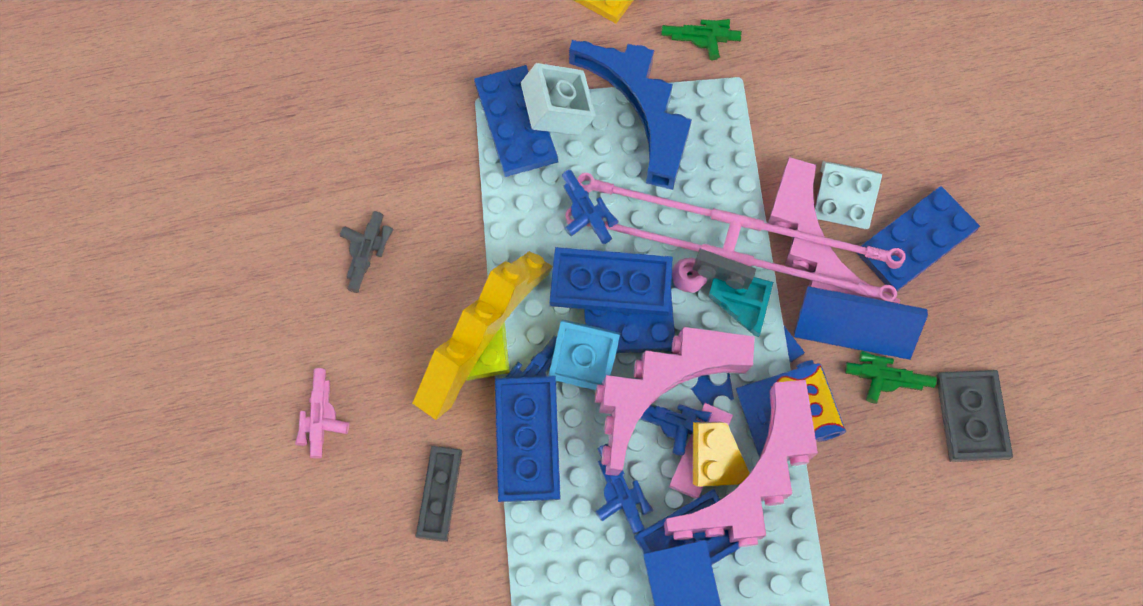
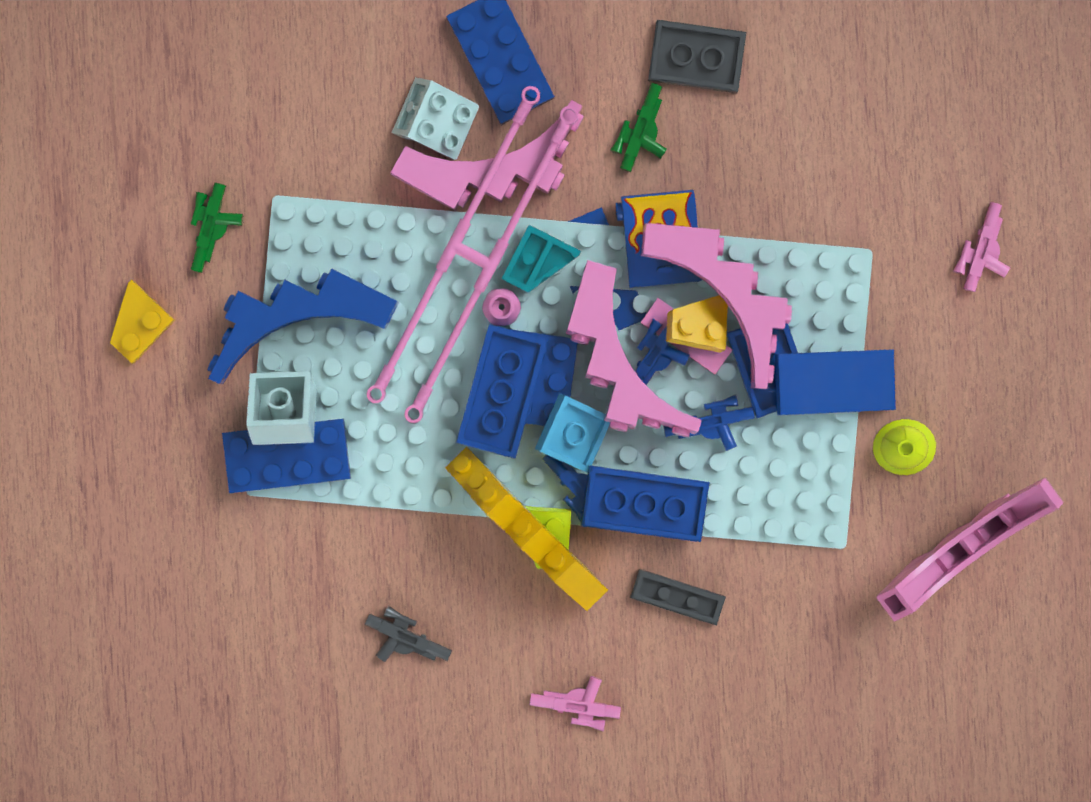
camera: 80 degrees left, 20 degrees up
(585, 212) = (413, 403): blue piece -> none
(716, 266) = (520, 264): dark grey plate -> none
(860, 323) = (588, 147): blue tile -> none

